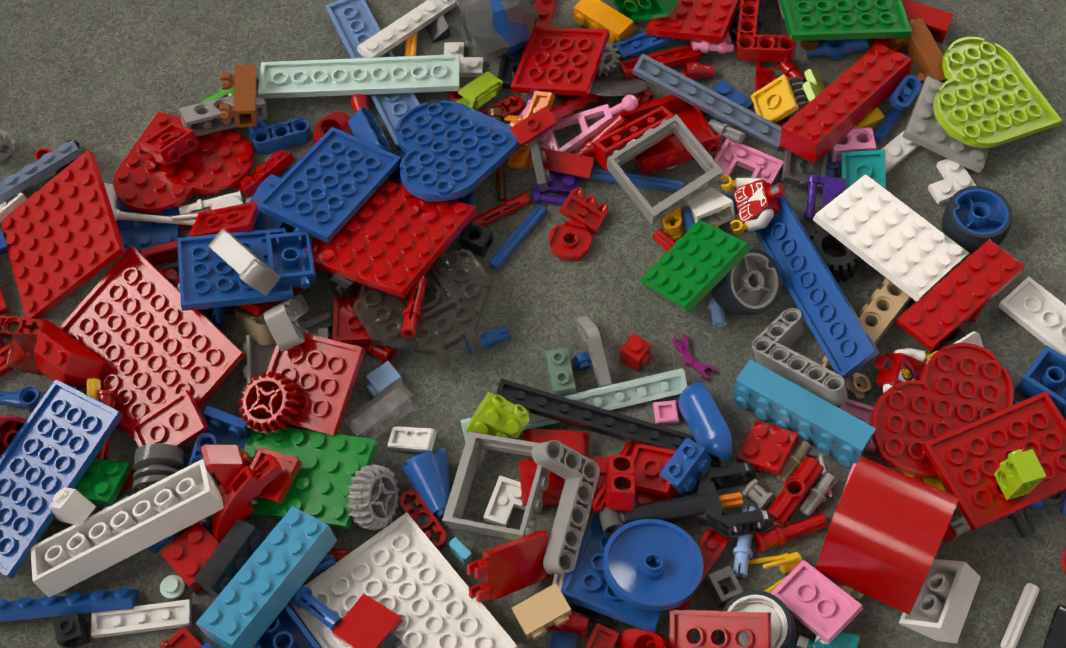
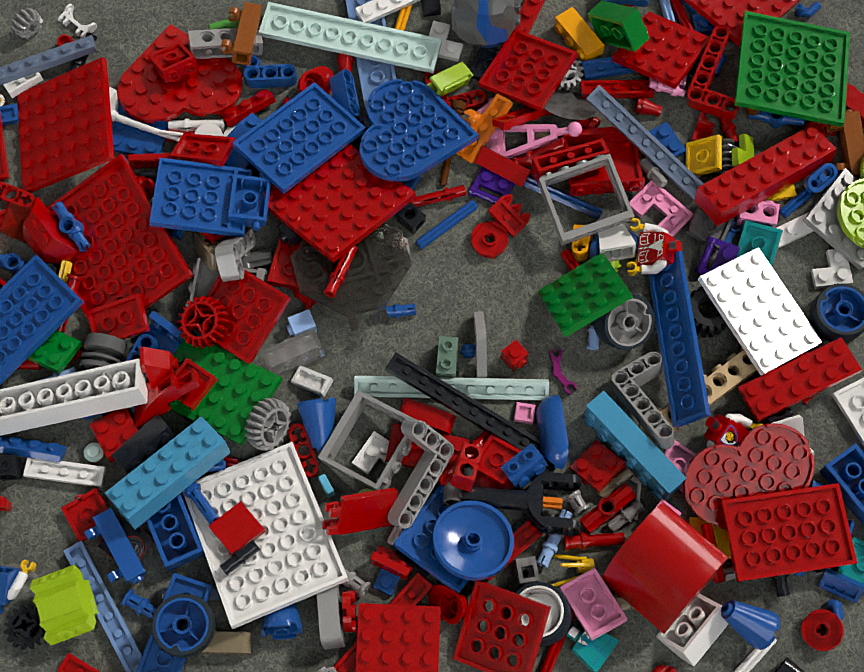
camera: 10 degrees right, 10 degrees up
(42, 132) = (67, 17): none -> white piece
(71, 506) = (28, 369): white slope -> none
(91, 339) = (76, 232): none -> blue pin
(246, 263) = (216, 209): light grey beam -> none
(498, 418) = (384, 385): lime plate -> none
(533, 126) = (484, 131): red plate -> none
(539, 158) = (482, 158): dark grey plate -> none
(542, 611) = (374, 555): tan brick -> none
(862, 381) = (695, 432): tan plate -> none
(1006, 573) = (751, 623): none -> blue cone
(1019, 474) = (787, 548): lime brick -> none

